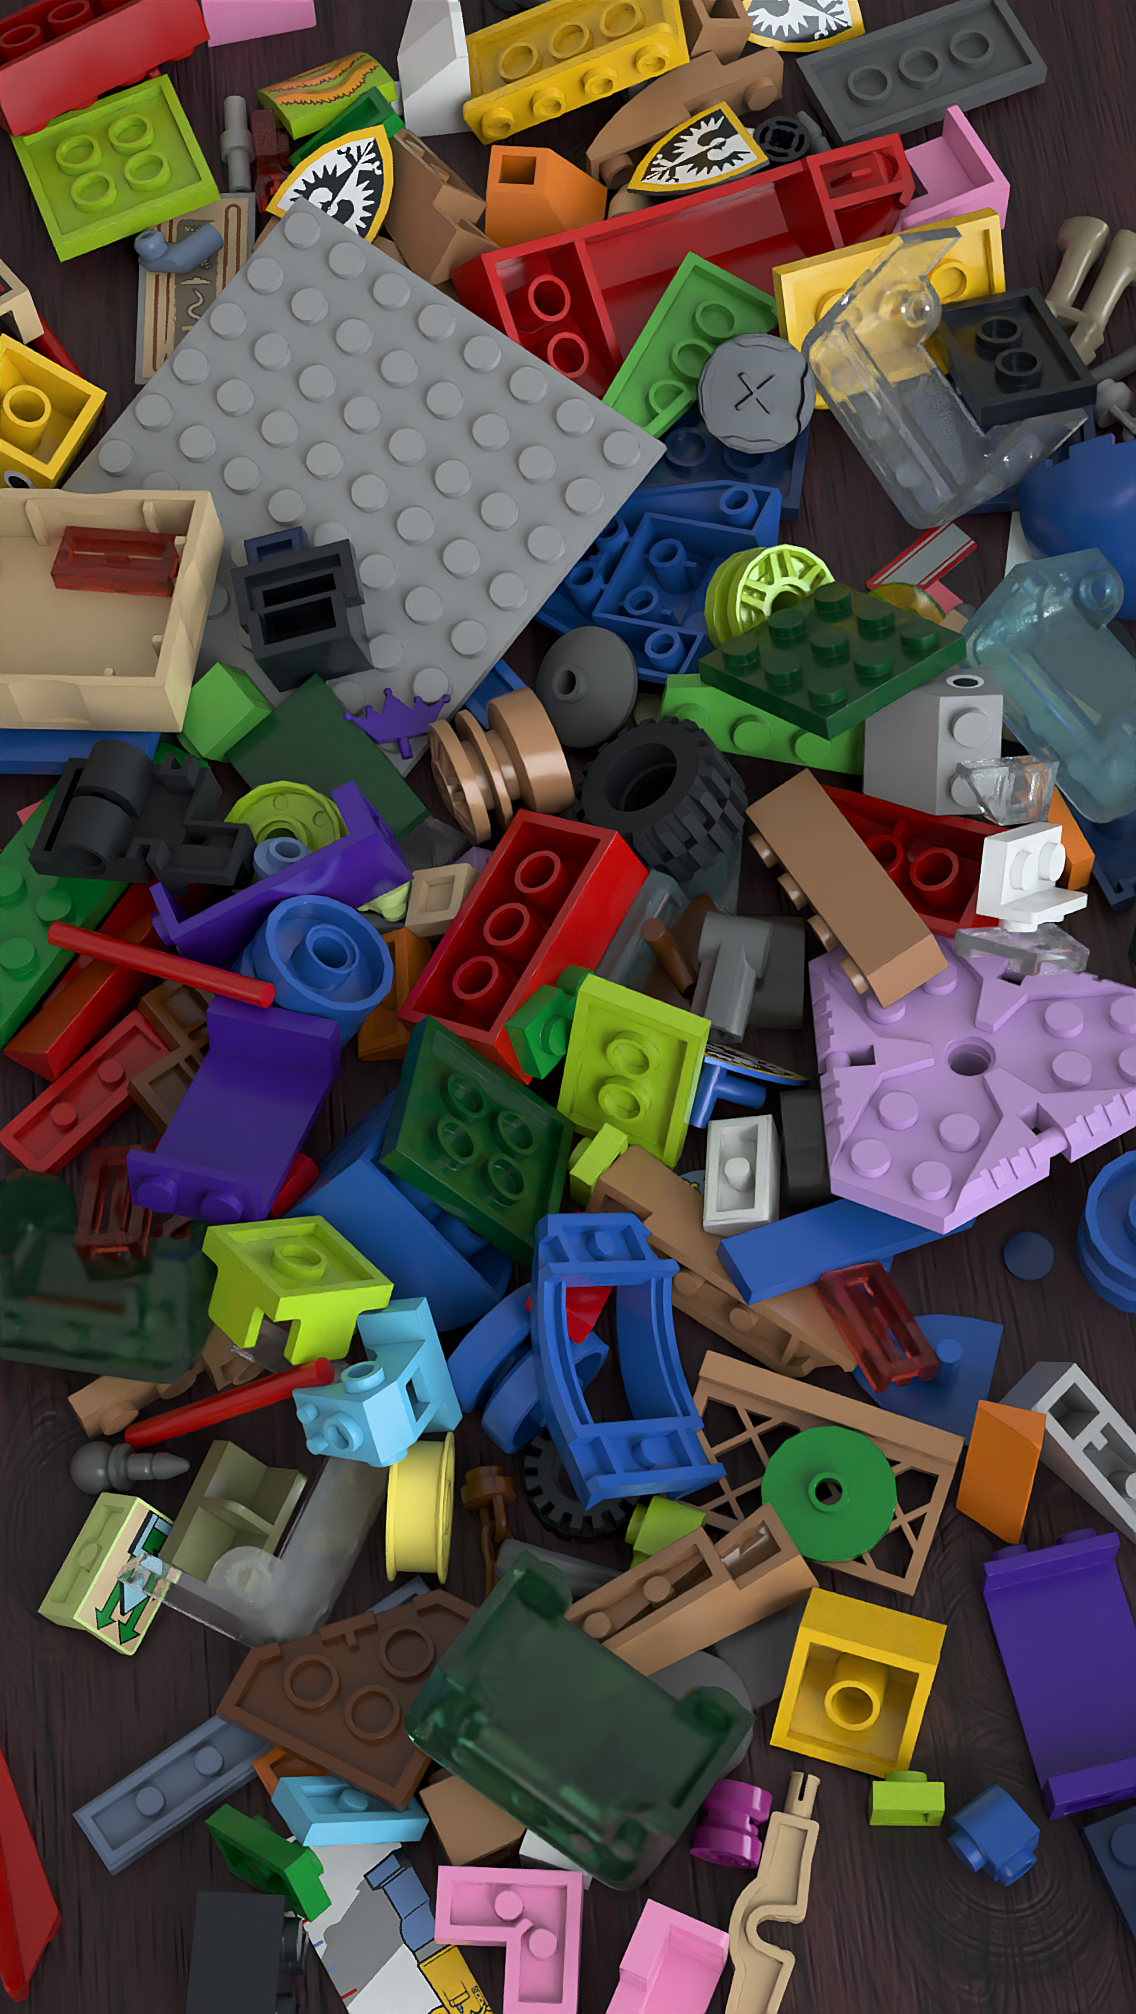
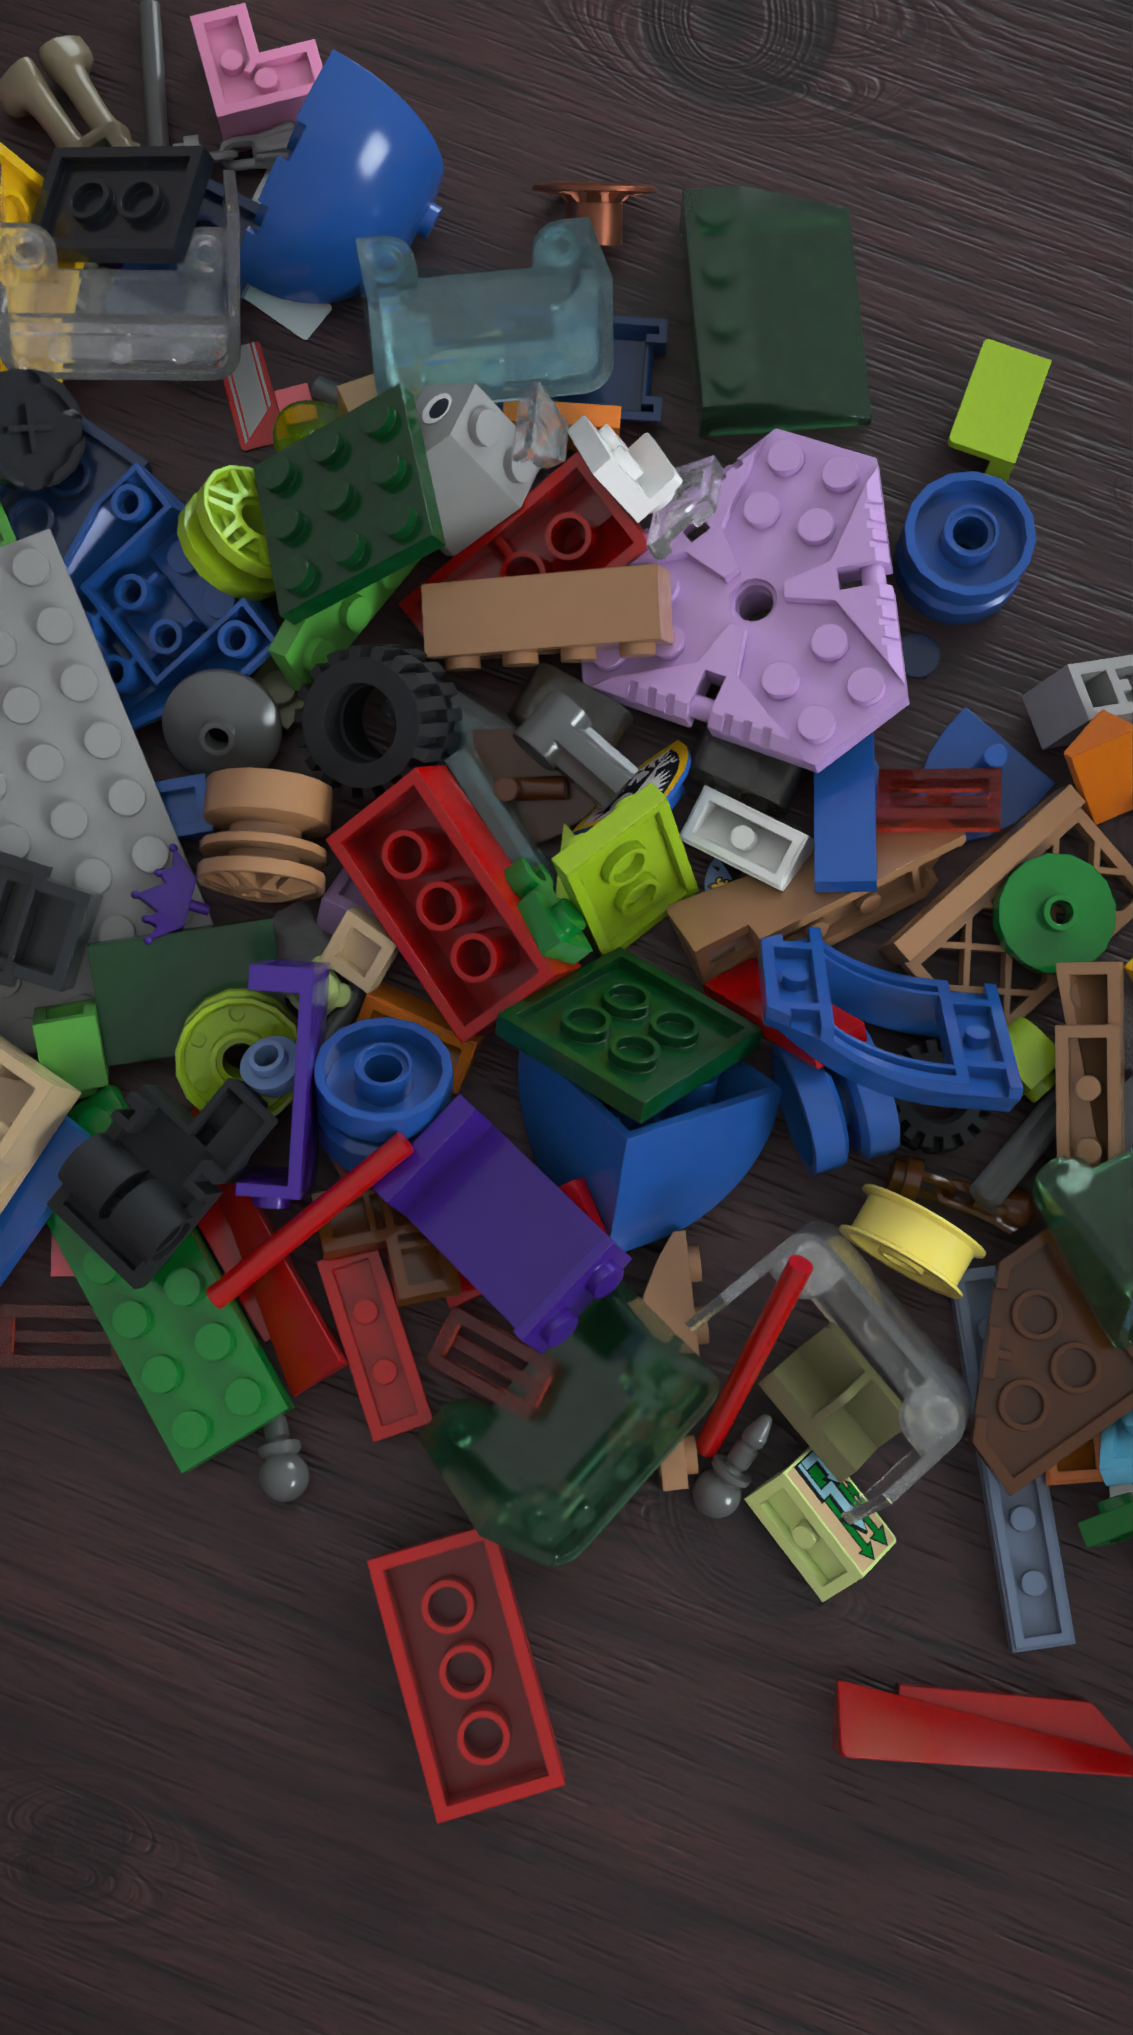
camera: 65 degrees left, 15 degrees up
(294, 1273) = (699, 1249): lime panel -> none
(372, 1409) = (830, 1202): medium azure tile -> none
(592, 1159) = (669, 947): lime plate -> none

